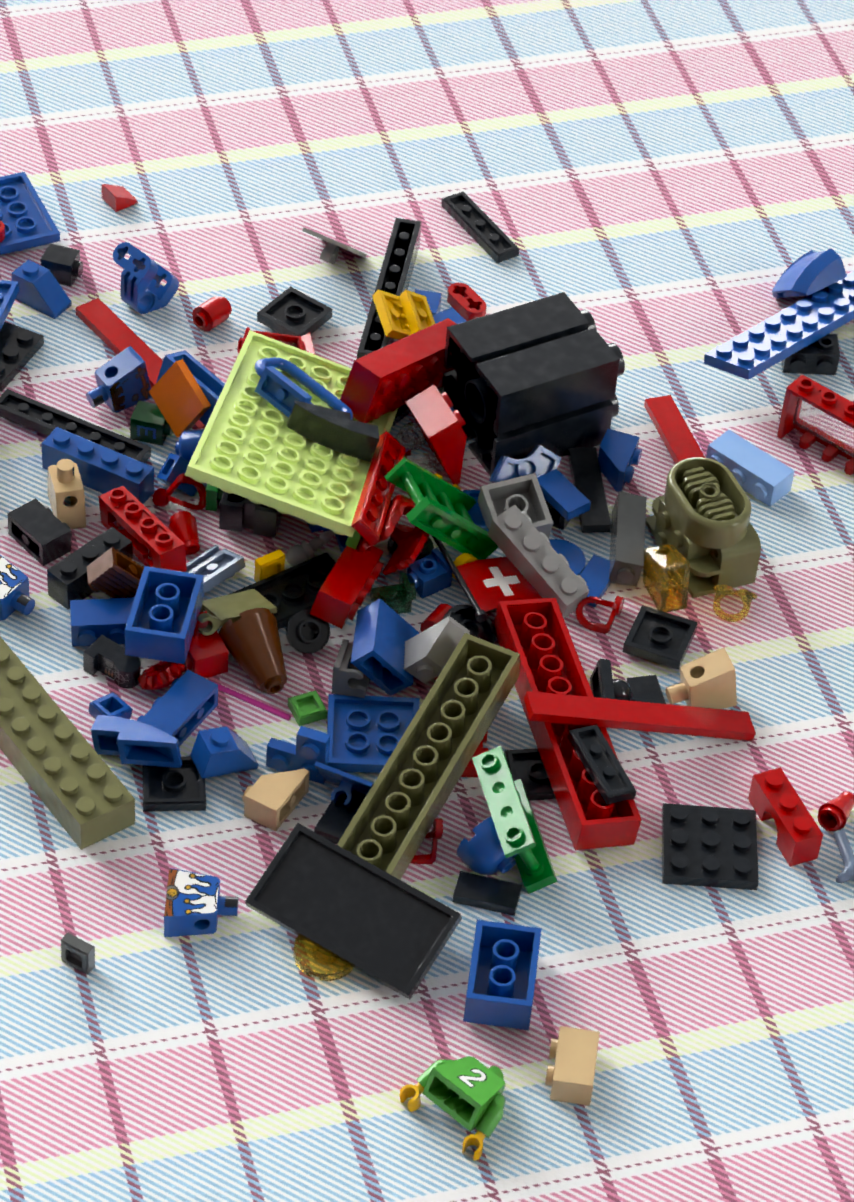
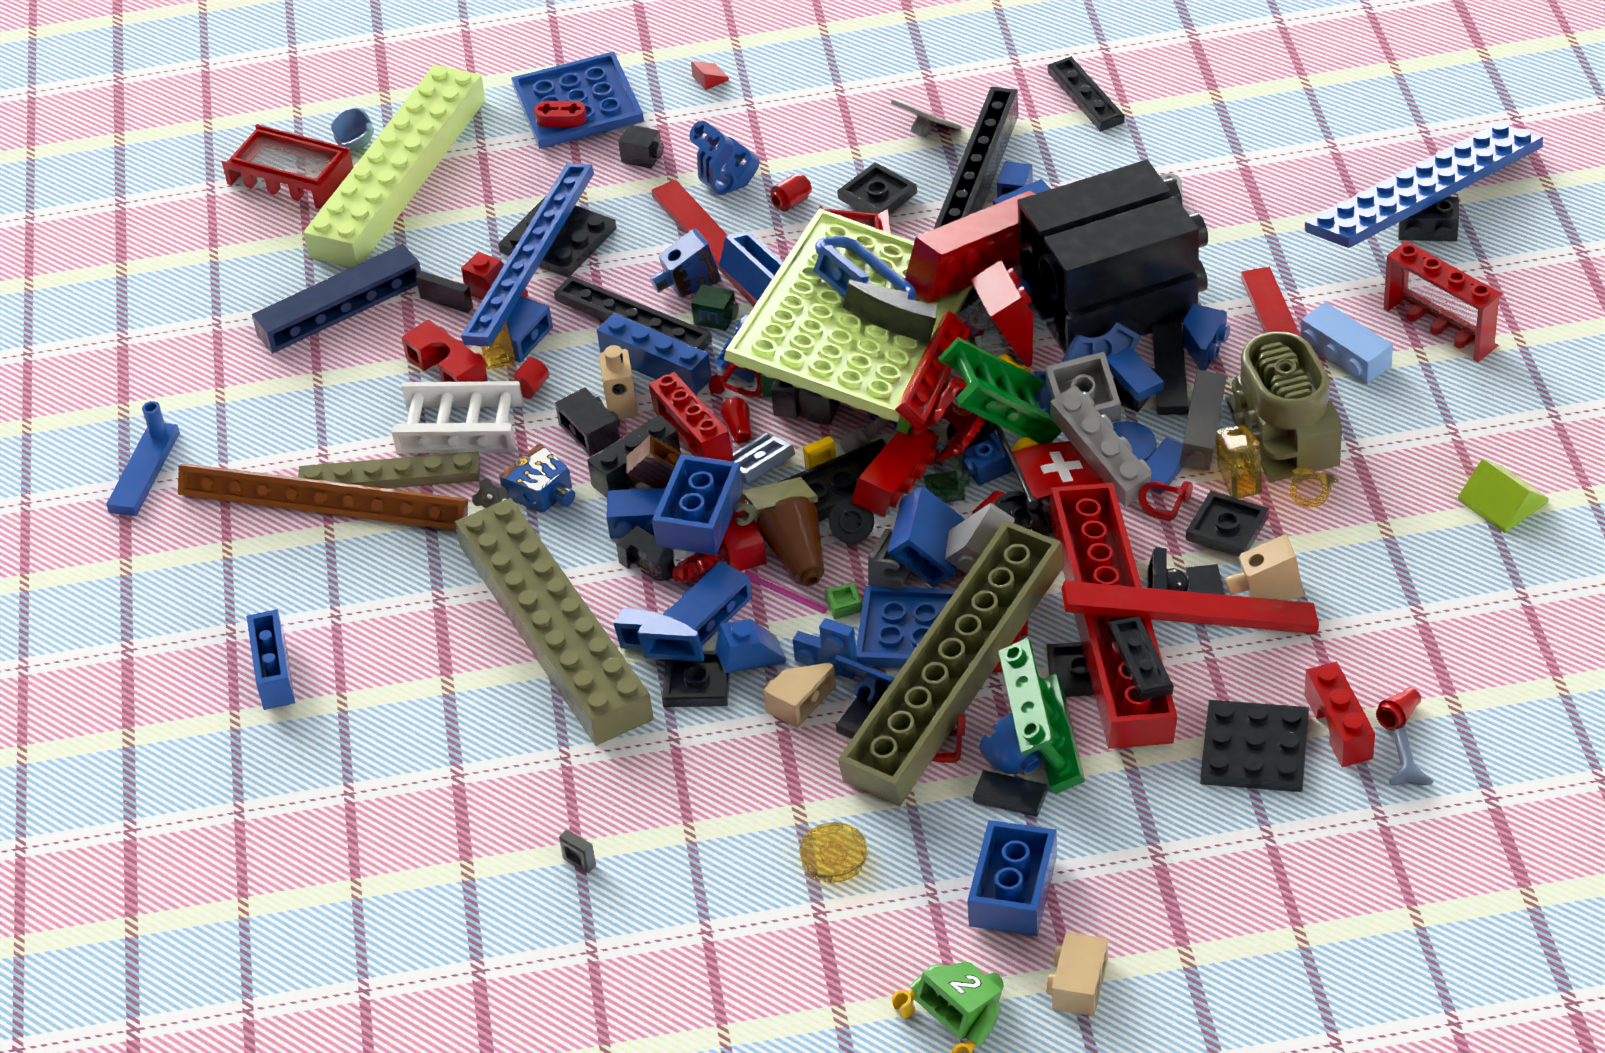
camera: 15 degrees right, 0 degrees up
(40, 289) = (616, 172): blue slope -> none
(111, 706) = (639, 599): blue brick -> none
(179, 398) = (739, 279): orange tile -> none
(194, 904) = (702, 802): torso -> none
(353, 910) = (862, 809): black tile -> none
(403, 313) = (985, 186): yellow slope -> none
(466, 301) = (1056, 176): red beam -> none
(810, 274) = (1436, 133): blue slope -> none

